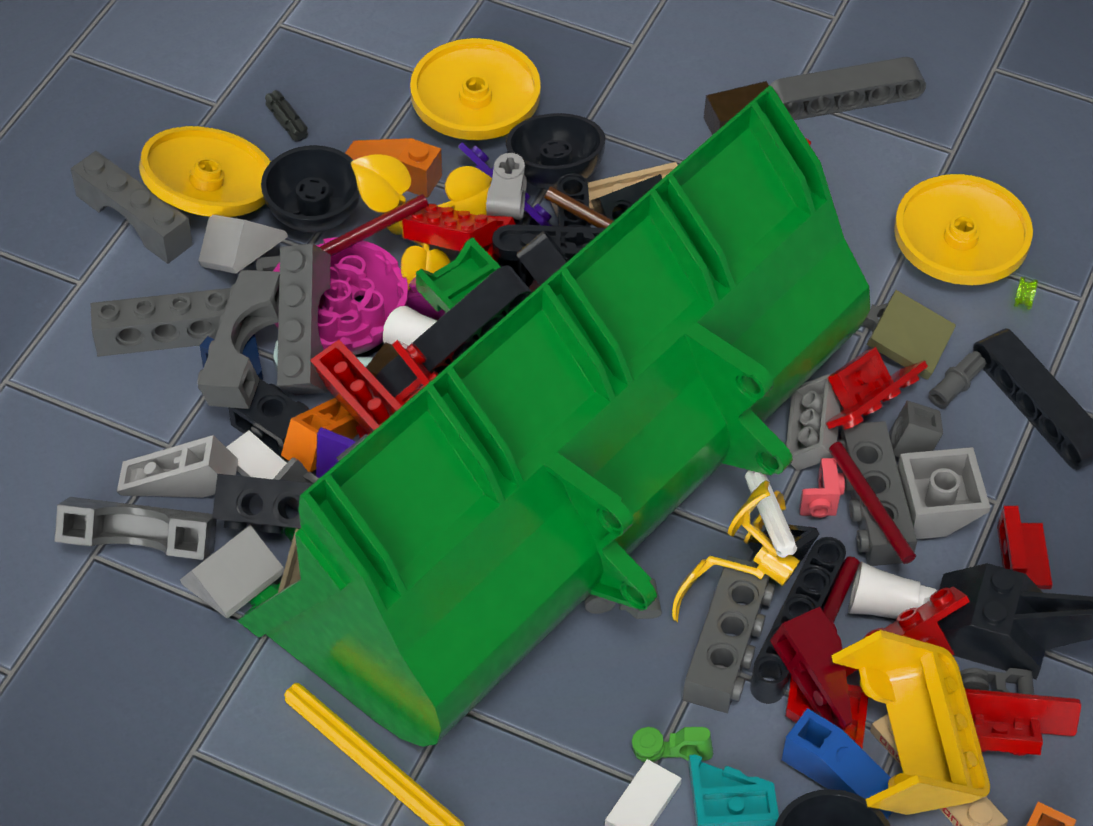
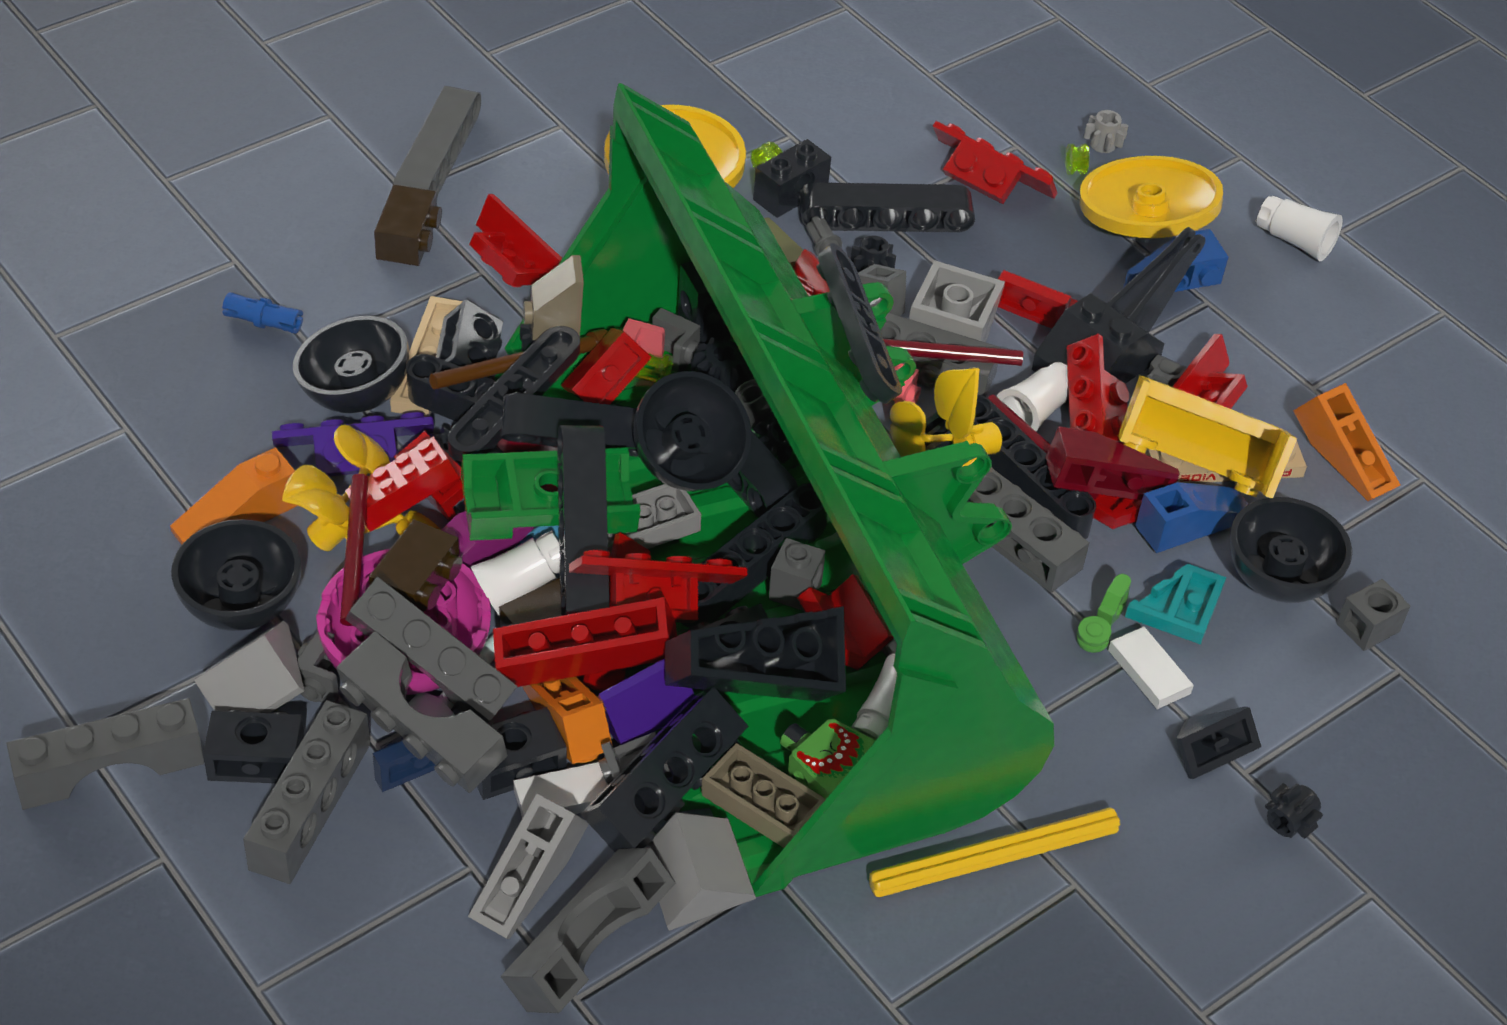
camera: 65 degrees left, 5 degrees down
(184, 268) = (250, 745): none -> black brick
(204, 171) = (120, 659): yellow dish -> none
(286, 115) = (81, 564): pearl dark grey axle -> none
(366, 273) = (420, 564): none -> dark brown brick
(475, 88) = (202, 391): yellow dish -> none
(507, 187) = (384, 417): light grey piece -> none
(586, 83) = (262, 312): none -> blue pin
(659, 388) = (859, 323): none -> black piece
(772, 517) = (924, 408): white axle -> none
(965, 413) = (873, 251): none -> black gear
(1015, 310) = (783, 176): none -> black brick

